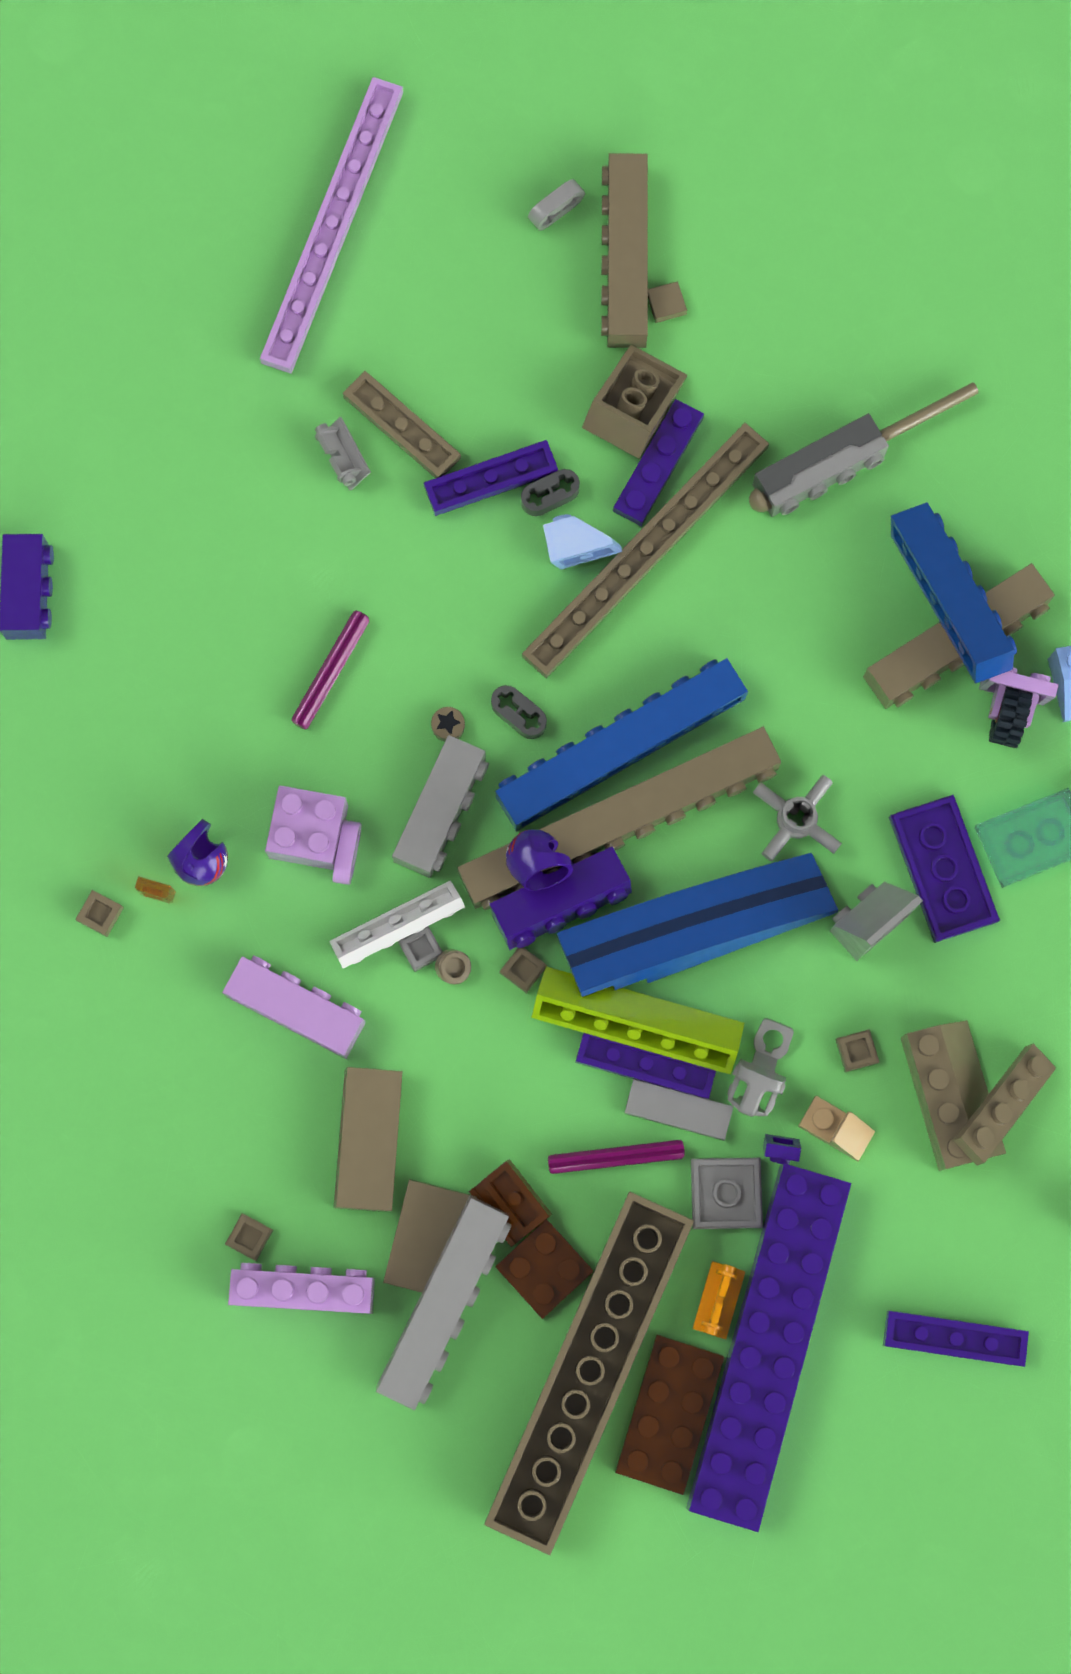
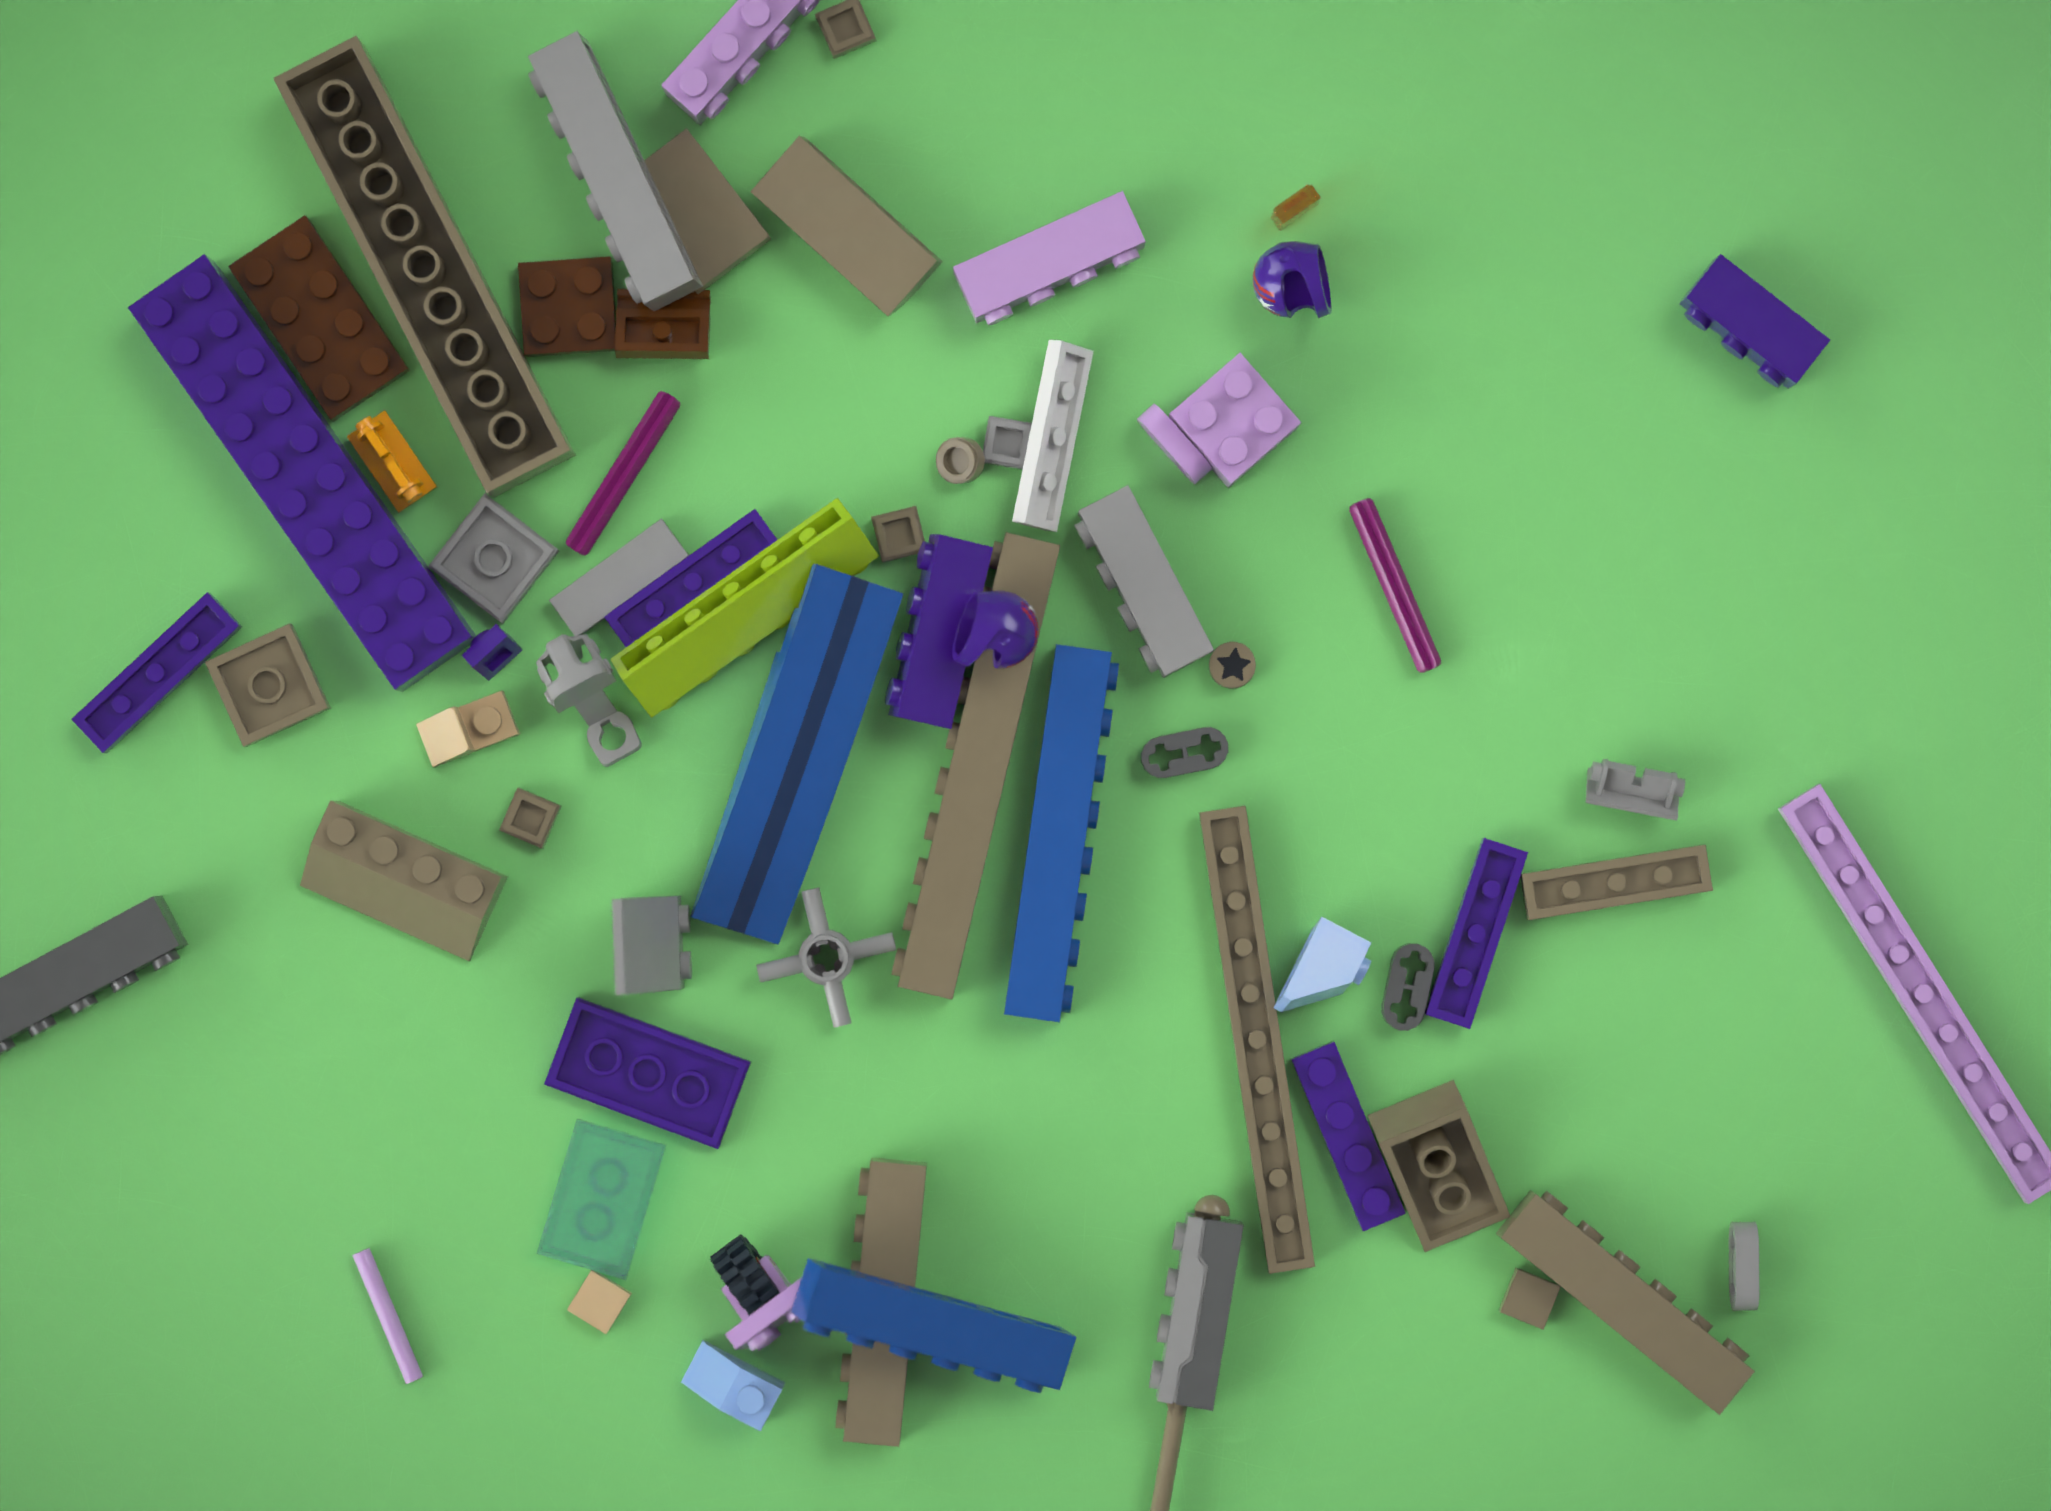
camera: 125 degrees right, 10 degrees up
(99, 913) = (1317, 129): dark tan plate -> none
(908, 1266) = (267, 685): none -> dark tan plate
(1004, 1104) = (347, 920): dark tan plate -> none

